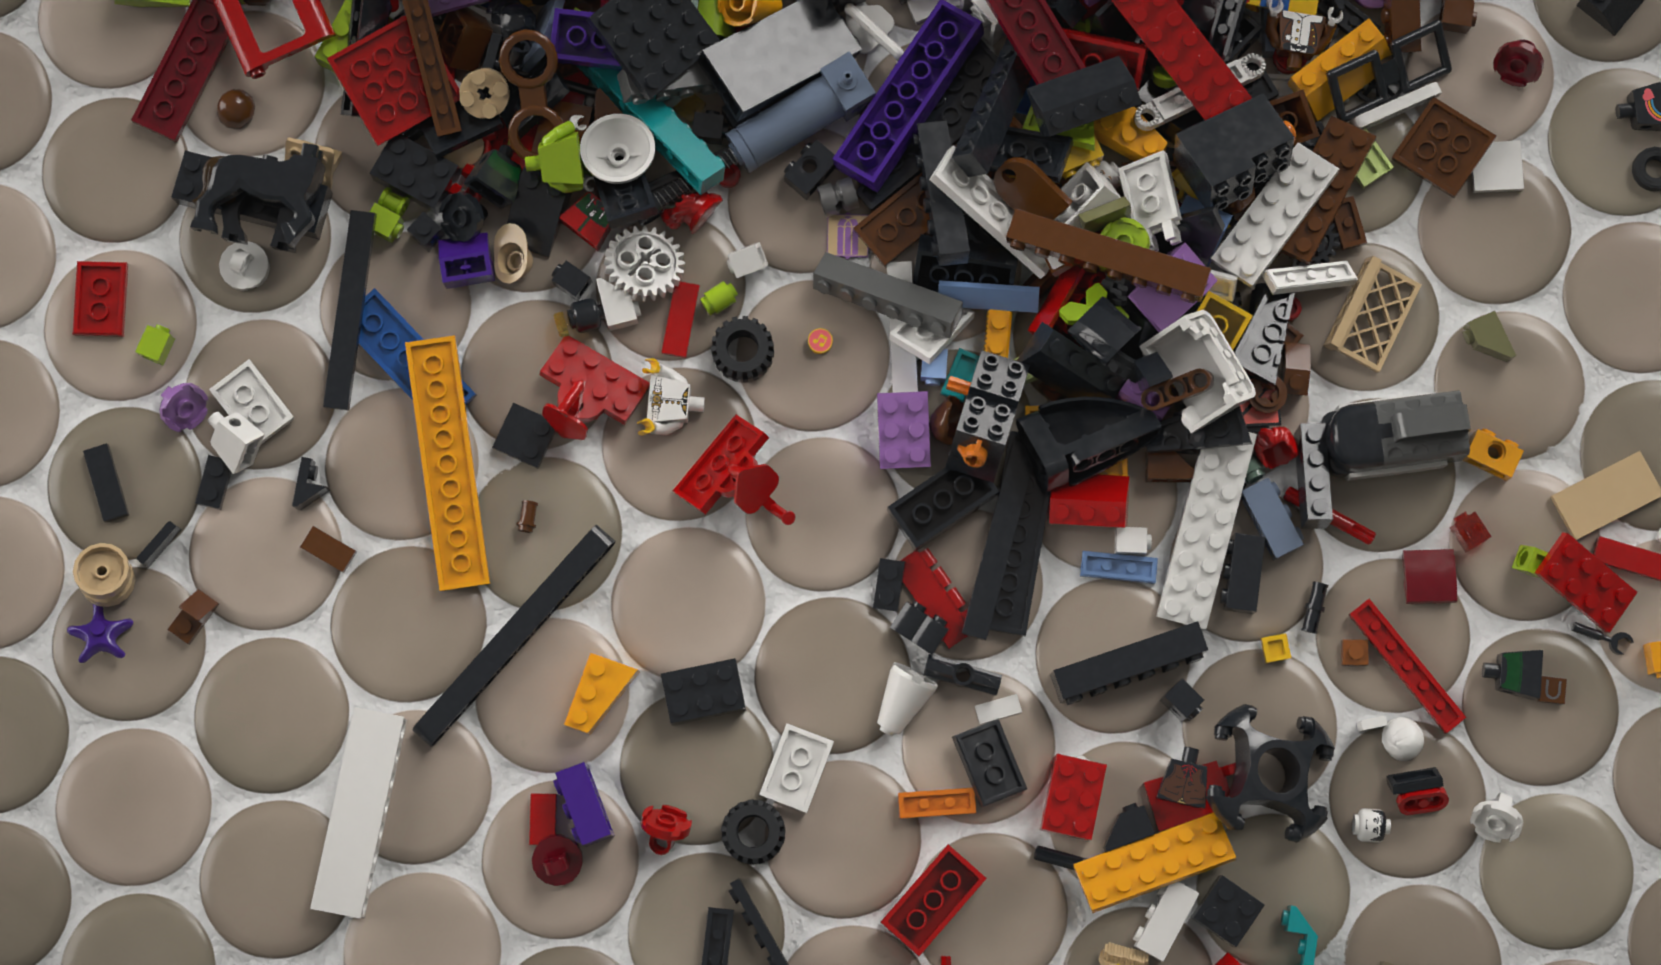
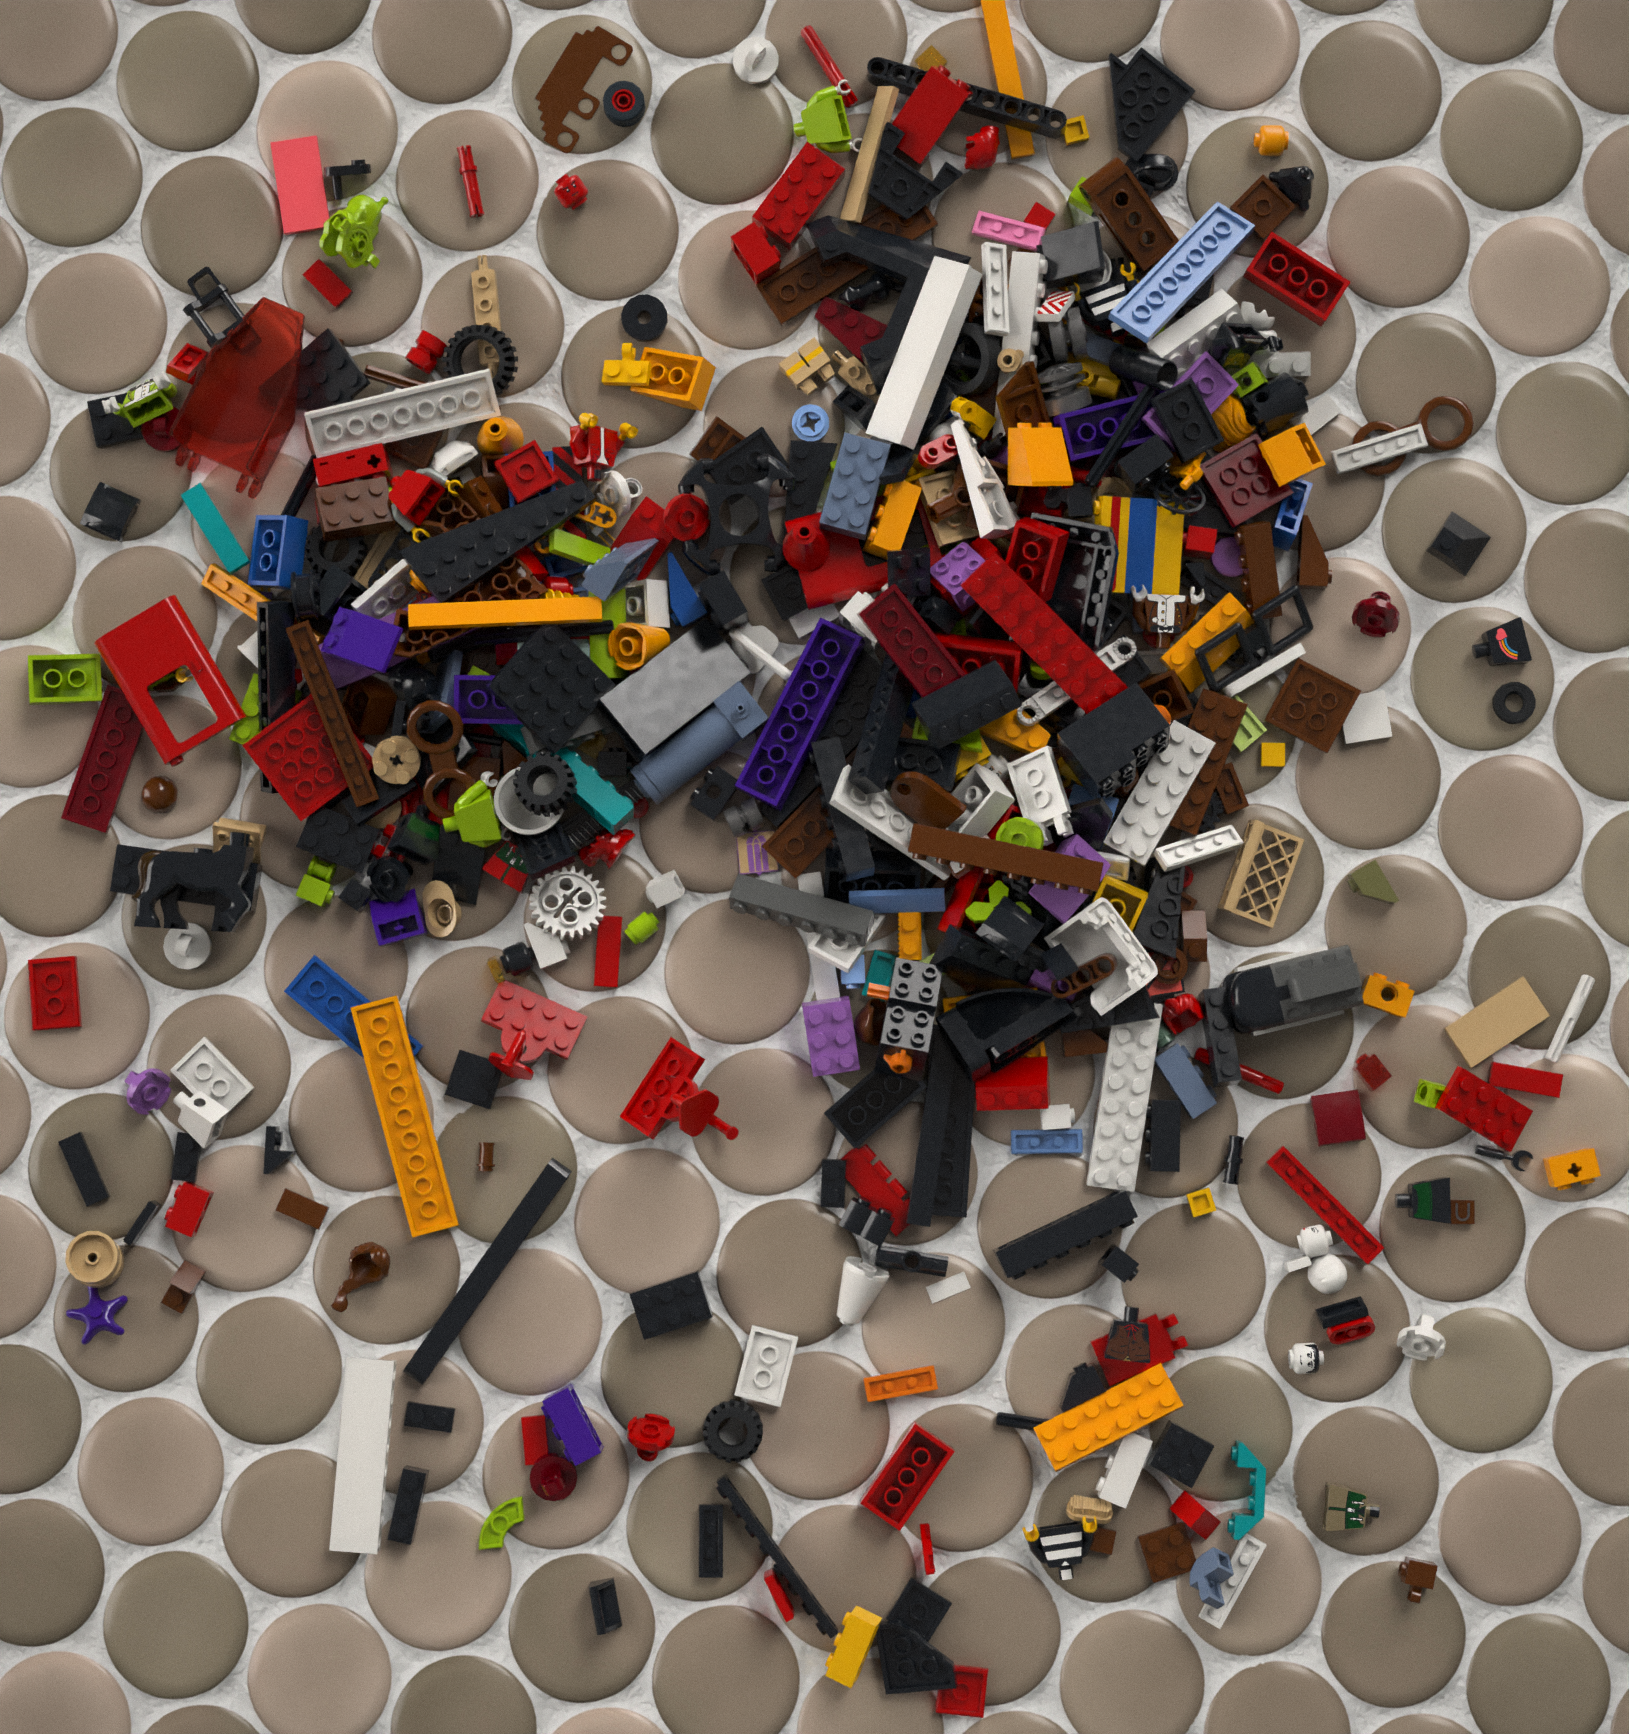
camera: 10 degrees left, 5 degrees up
(155, 344) = (113, 1032): lime brick -> none
(209, 535) = (188, 1208): none -> red brick
(349, 310) = (294, 980): black tile -> none
(389, 614) = (367, 1264): none -> reddish brown hair
(400, 871) = (408, 1504): none -> black brick
(434, 782) = (429, 1416): none -> black plate
(494, 902) = (499, 1522): none -> lime tile
(571, 280) = (499, 926): black brick -> none
(597, 692) = (572, 1315): light orange wedge -> none
(631, 113) = (558, 797): none -> black tyre
(668, 400) = (606, 1032): white torso -> none
(742, 328) = (650, 968): black tyre -> none
(820, 341) = (742, 957): coral tile -> none
(989, 763) = (945, 1340): black tile -> none
(1073, 797) = (1026, 1364): red piece -> none
(1099, 217) = (998, 815): olive slope -> none
(1247, 785) = (1185, 1336): black piece -> none
(1354, 652) = (1275, 1197): dark orange plate -> none
(1392, 702) = (1314, 1241): none -> white head
(1396, 194) = (1272, 755): none -> yellow tile

